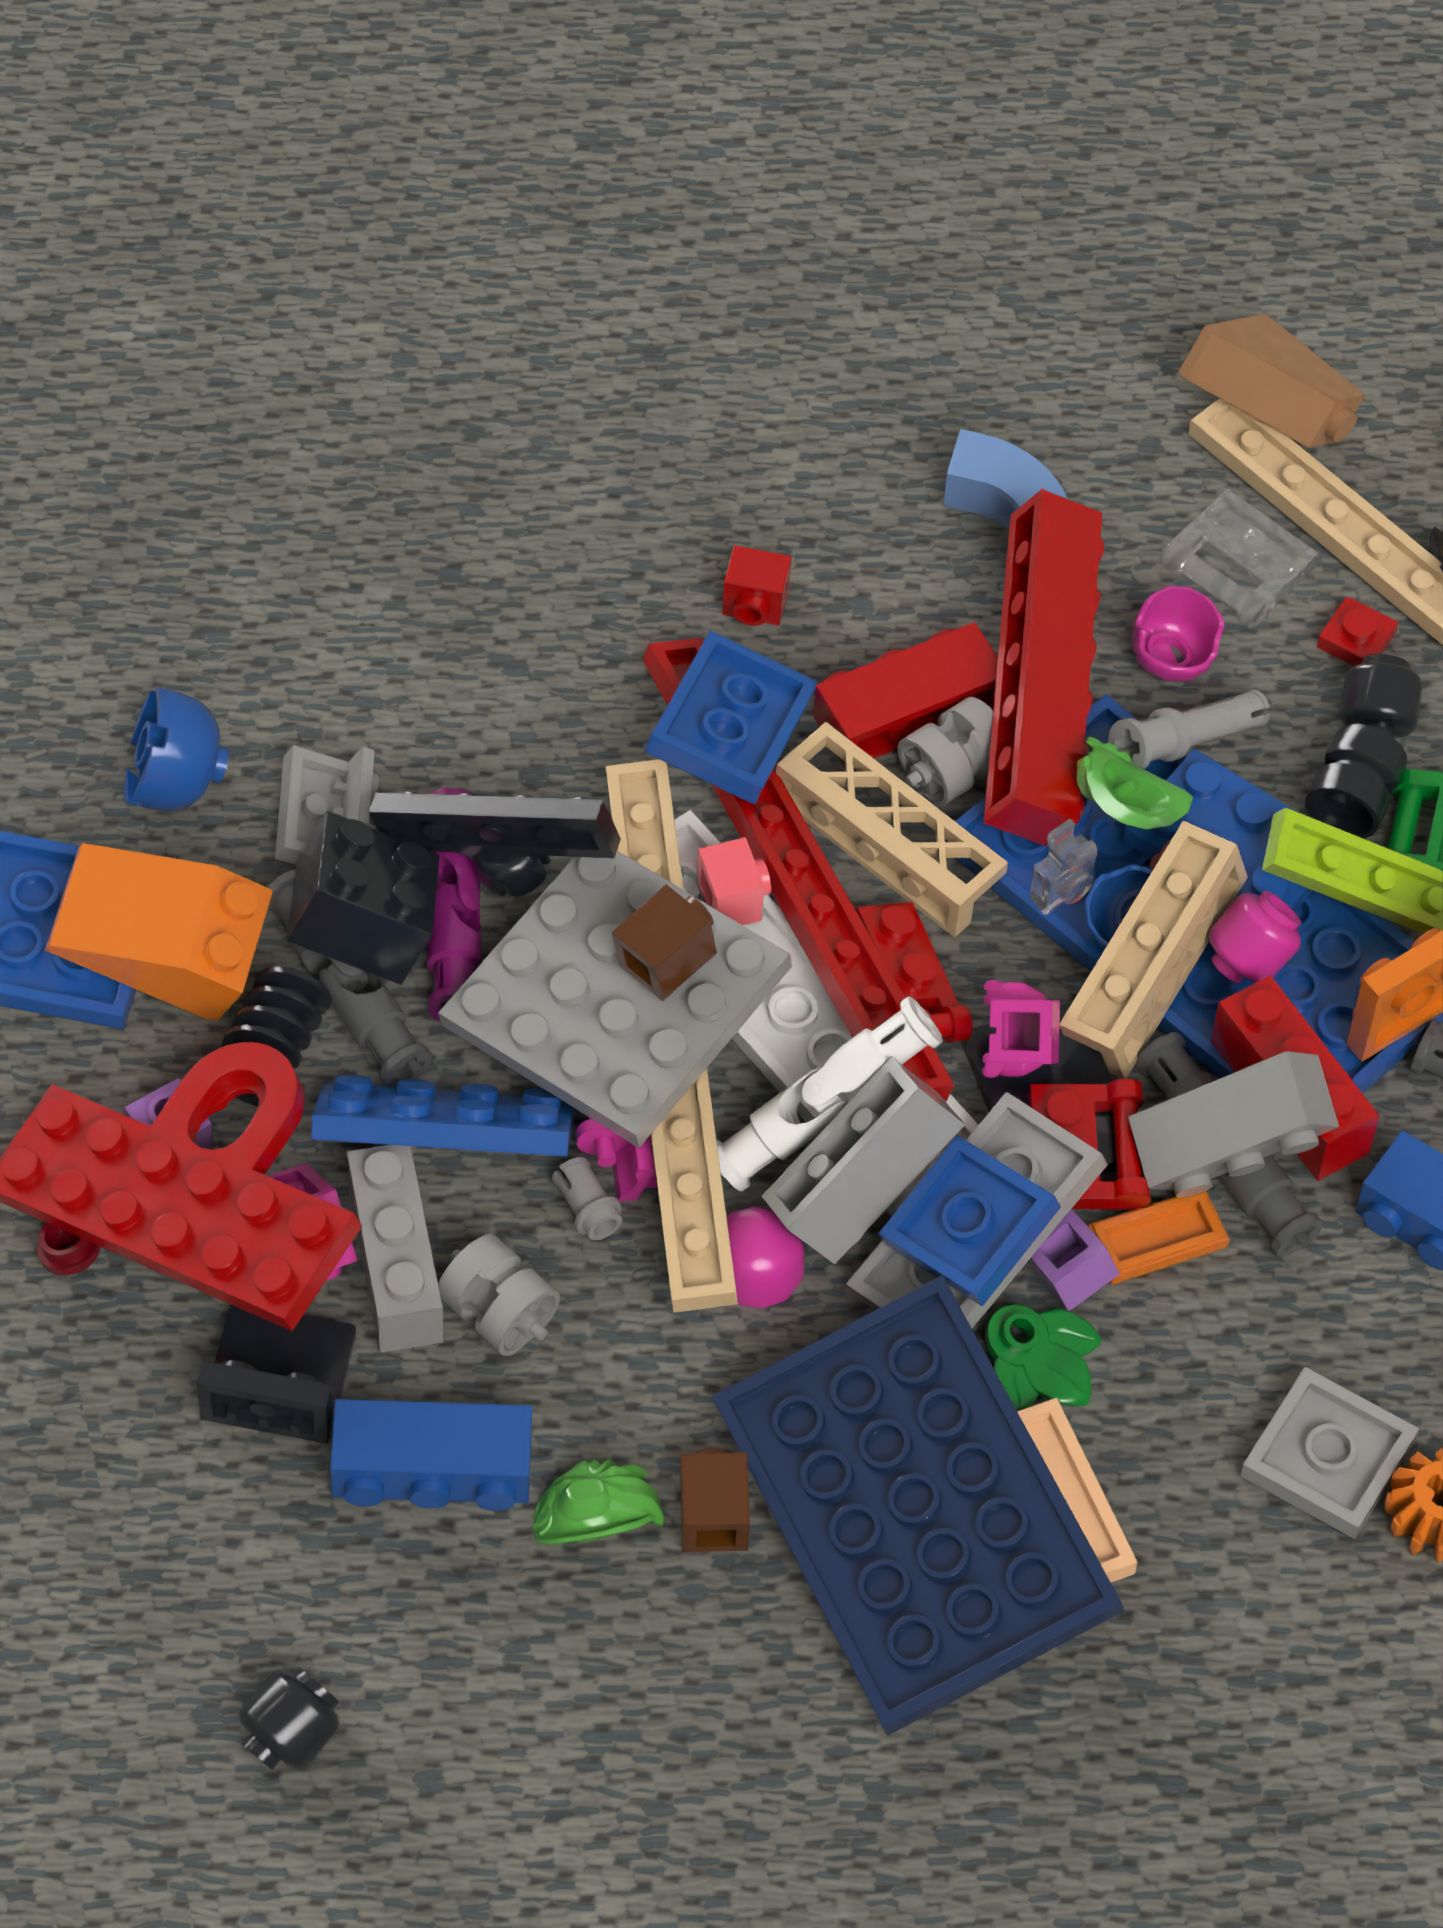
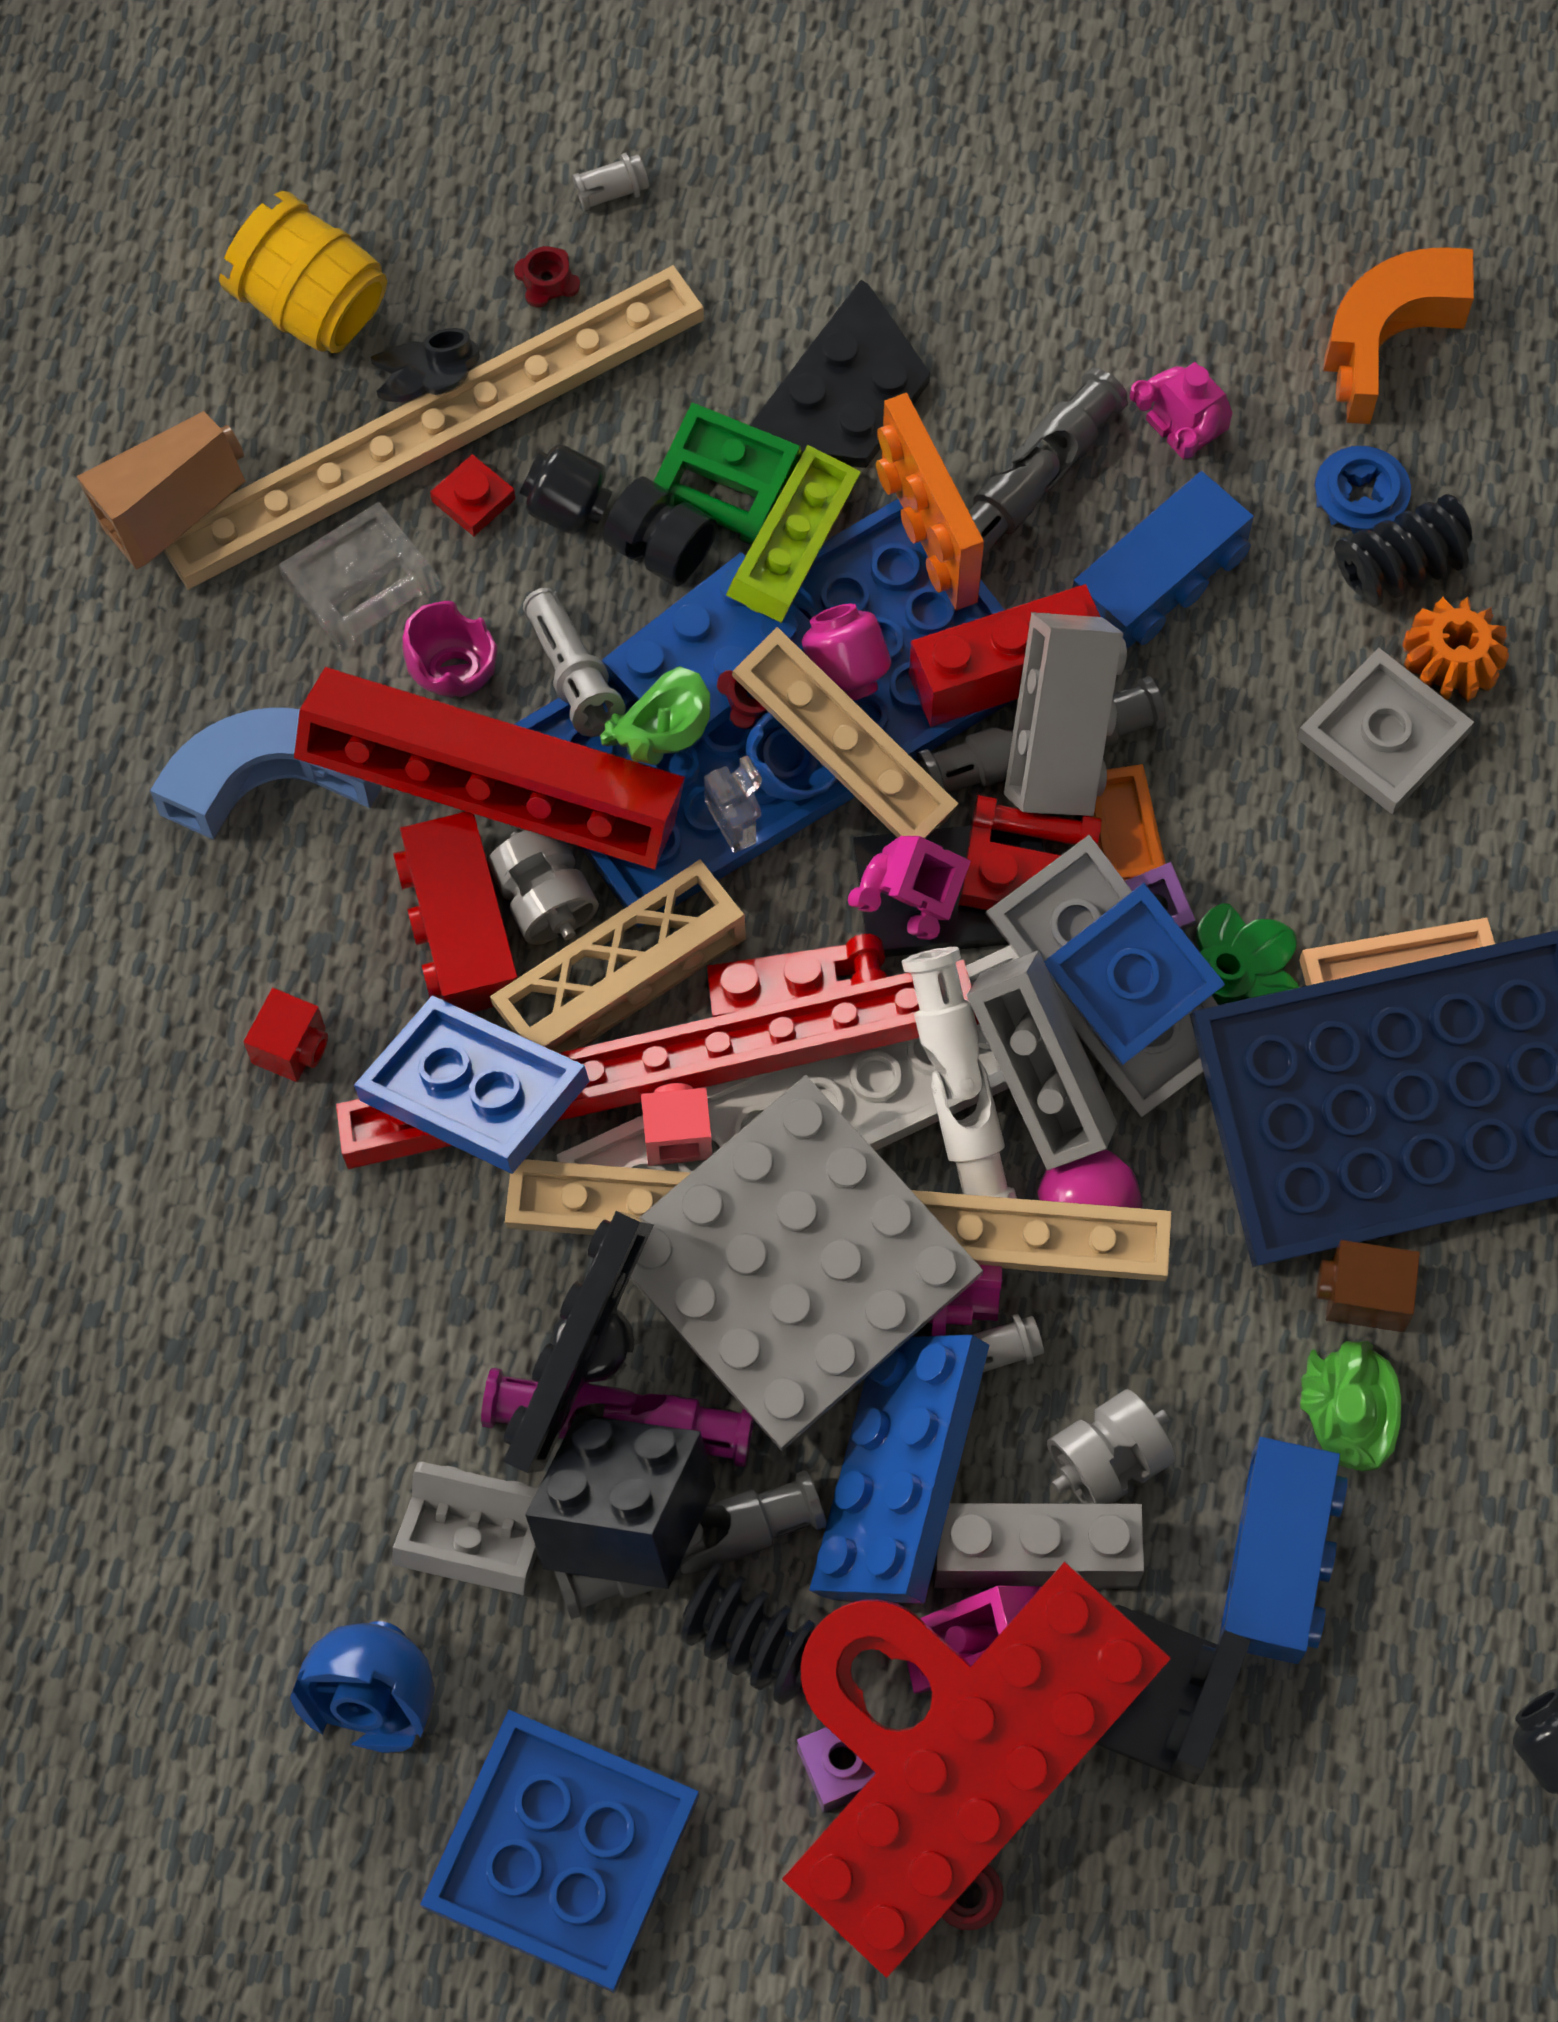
camera: 75 degrees left, 10 degrees up
(161, 926) = (604, 1727): orange slope -> none
(665, 941) = (785, 1185): reddish brown brick -> none

